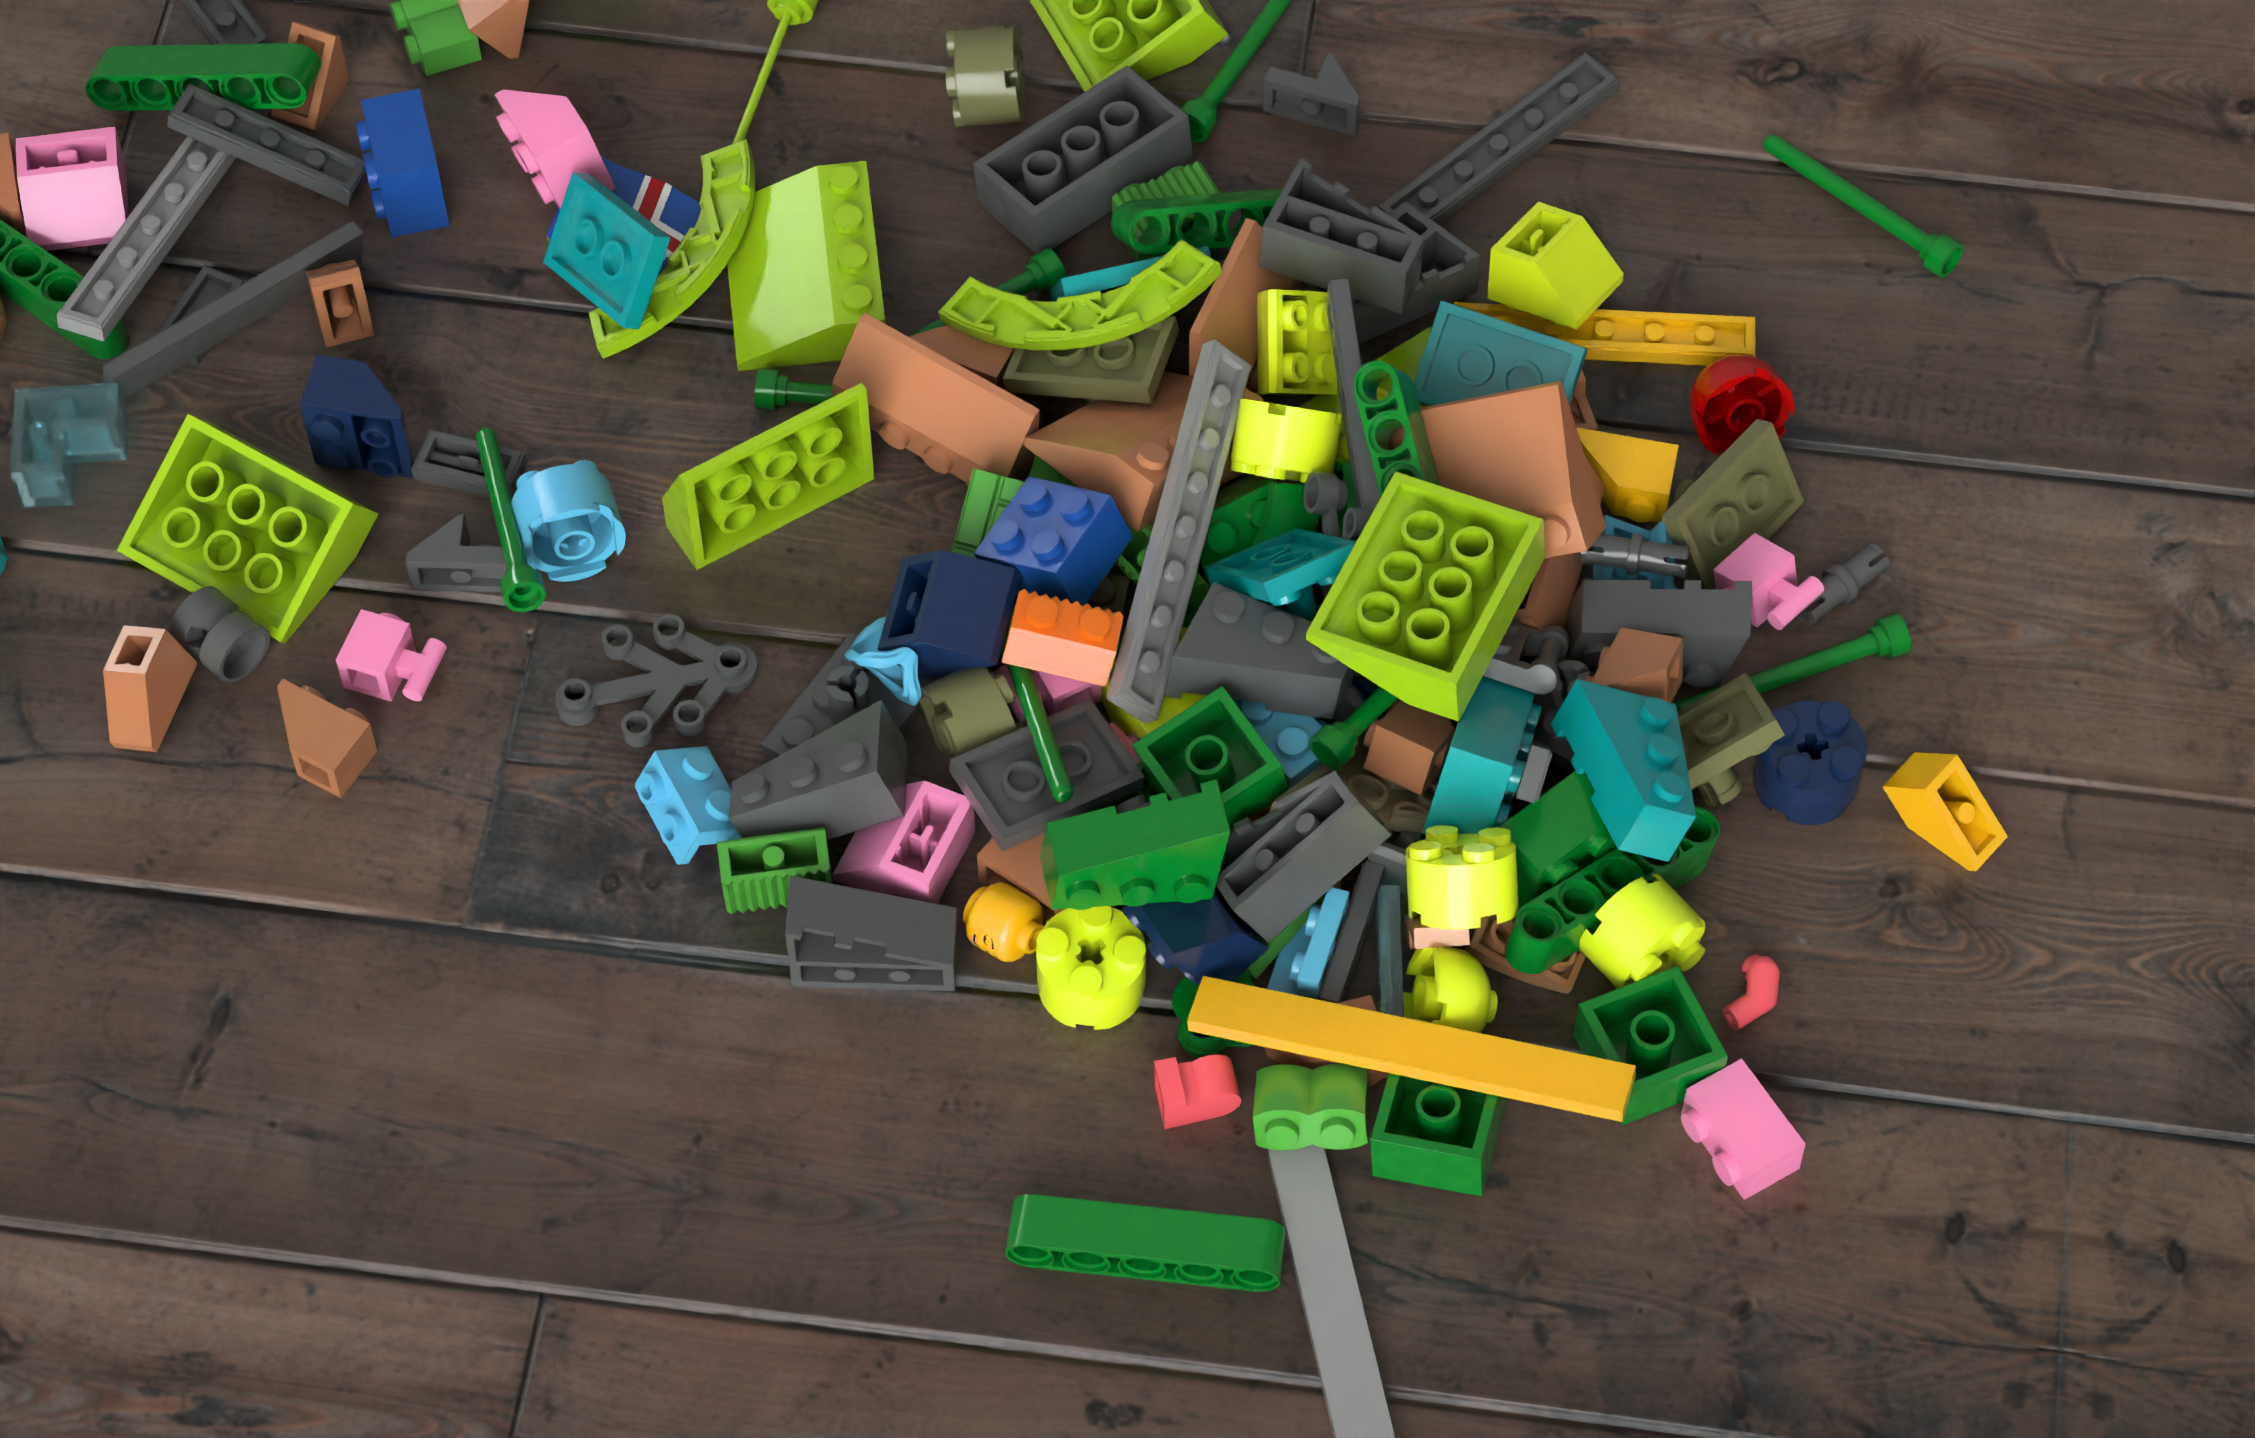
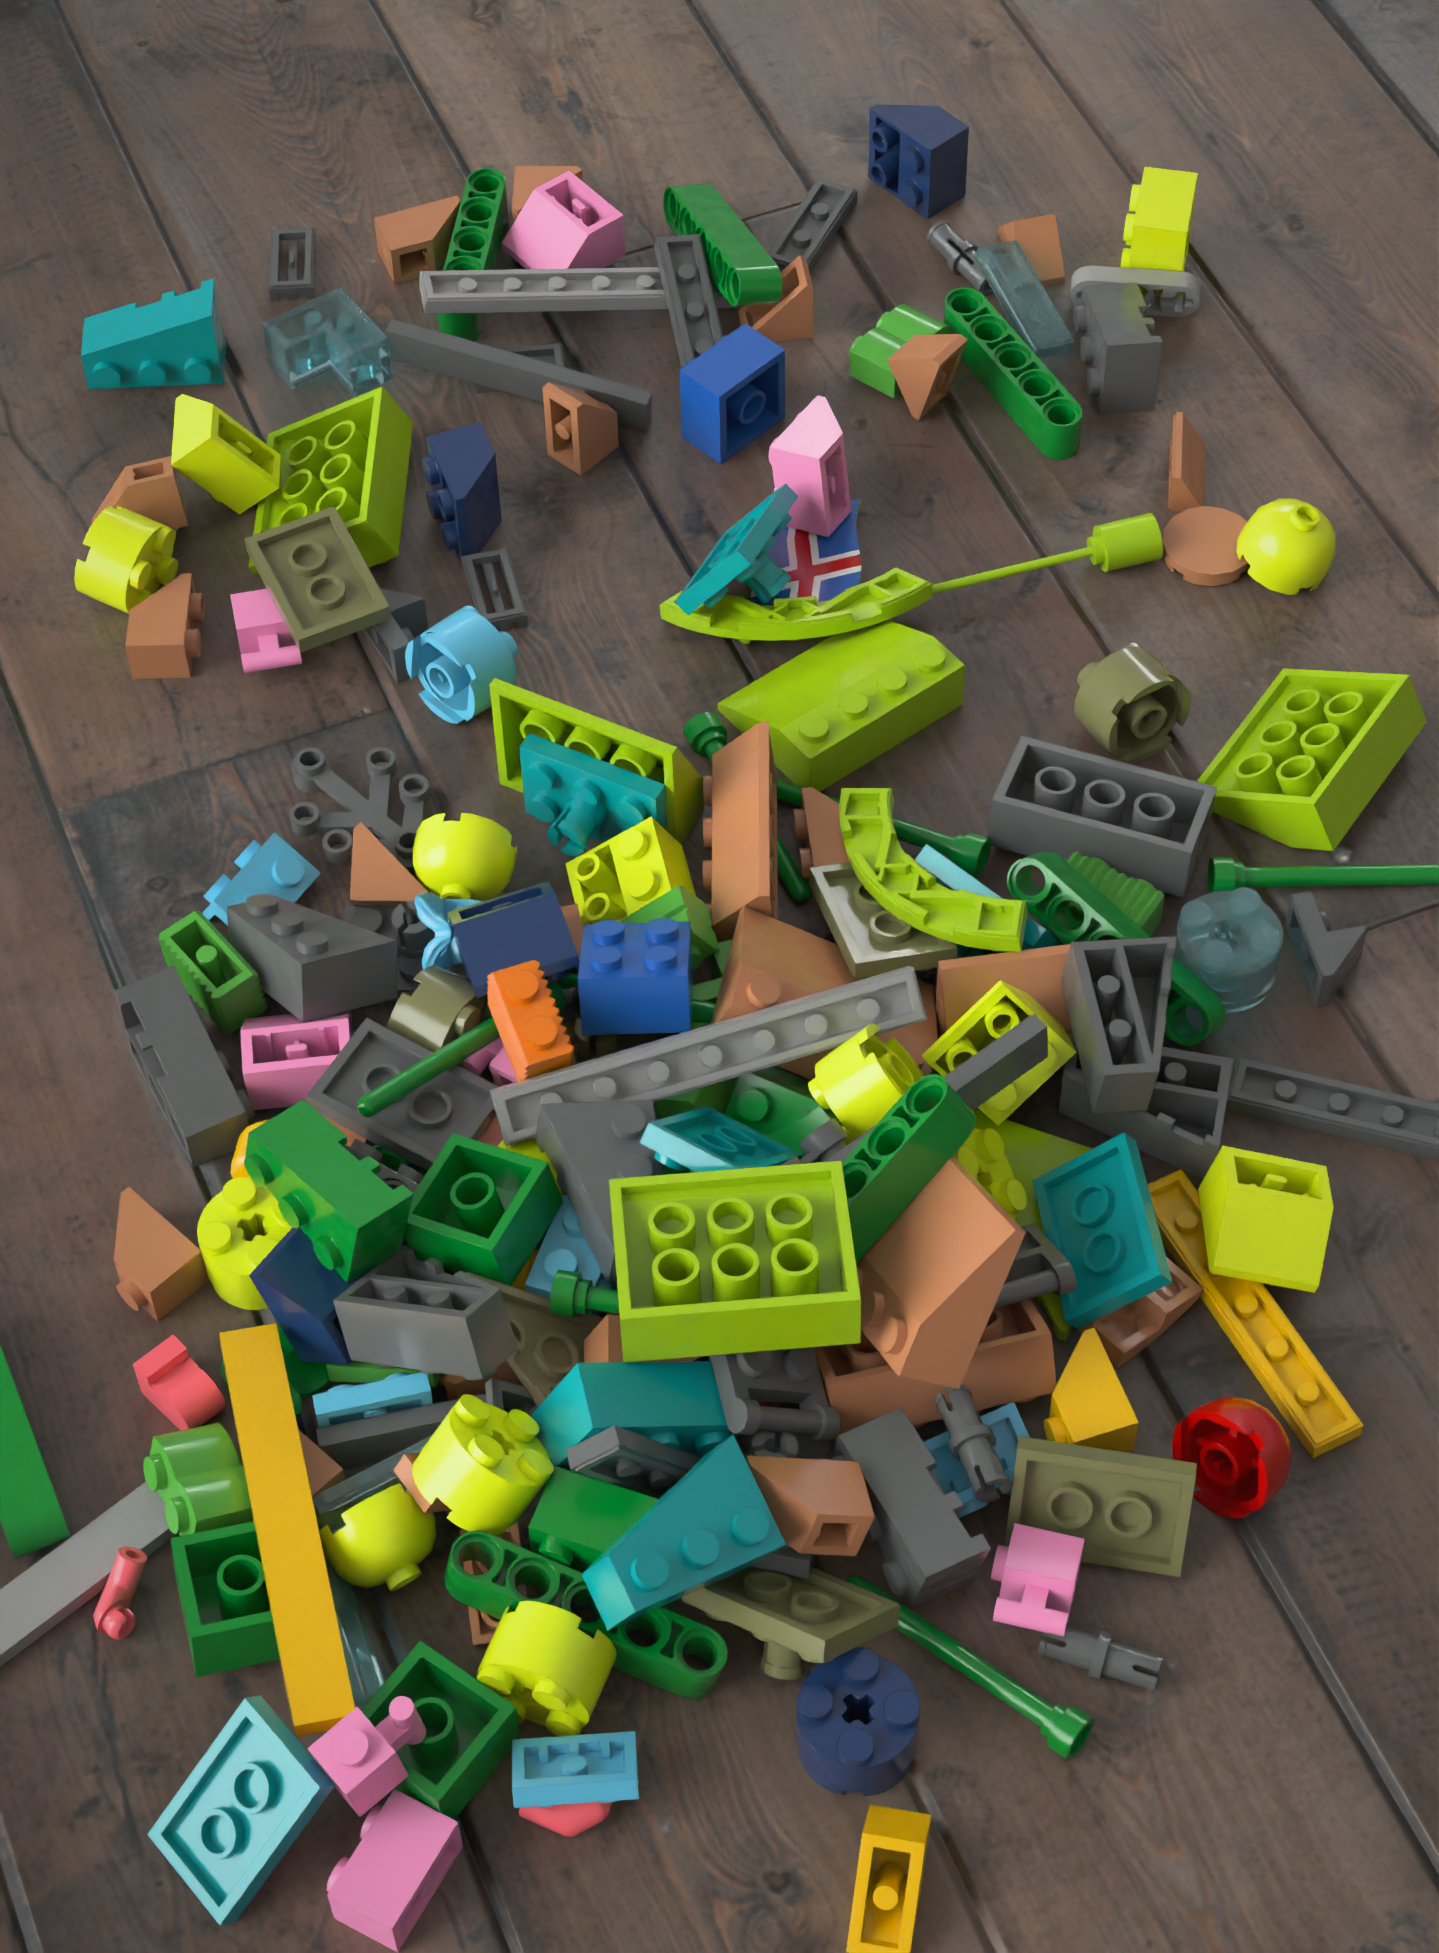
camera: 60 degrees right, 5 degrees down
(141, 582) = (222, 455): none -> neon yellow slope
(219, 634) = (218, 522): dark grey wheel -> none
(220, 724) = (126, 558): none -> neon yellow brick
(389, 576) = (317, 579): none -> olive plate
(521, 584) = (364, 660): green piece -> none
(758, 696) = (377, 875): none -> nougat slope
(801, 626) = (463, 857): none -> neon yellow cylinder
(804, 499) = (584, 795): none -> teal plate
(904, 515) = (627, 872): none -> neon yellow slope
(1043, 1053) = (154, 1259): none -> nougat slope
(1270, 140) = (1231, 945): none -> clear light blue brick
(1363, 1223) = (112, 1611): none -> coral arm
(1644, 1200) = (240, 1809): none -> plate
(1675, 1075) = (364, 1757): none -> bright pink brick
(1742, 961) = (574, 1769): none -> medium azure bracket

